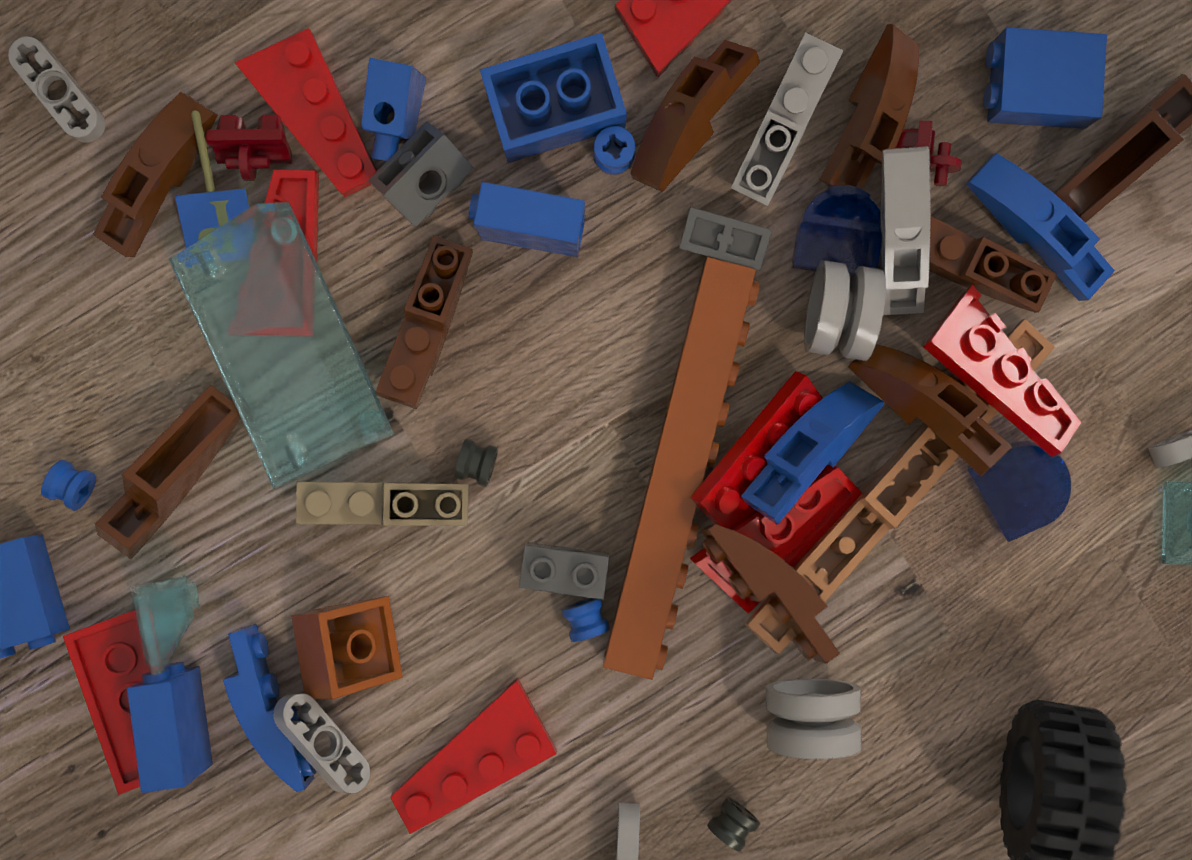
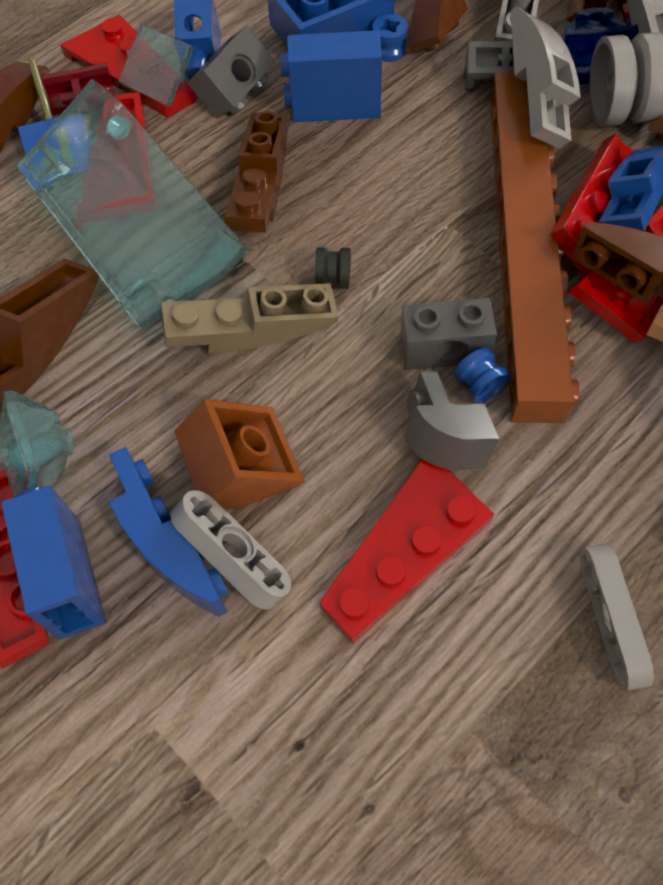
camera: 10 degrees left, 25 degrees down
(336, 146) = (156, 65): none -> clear light blue piece
(527, 676) = (447, 433): none -> dark grey brick
(753, 300) = (550, 76): none -> light grey slope

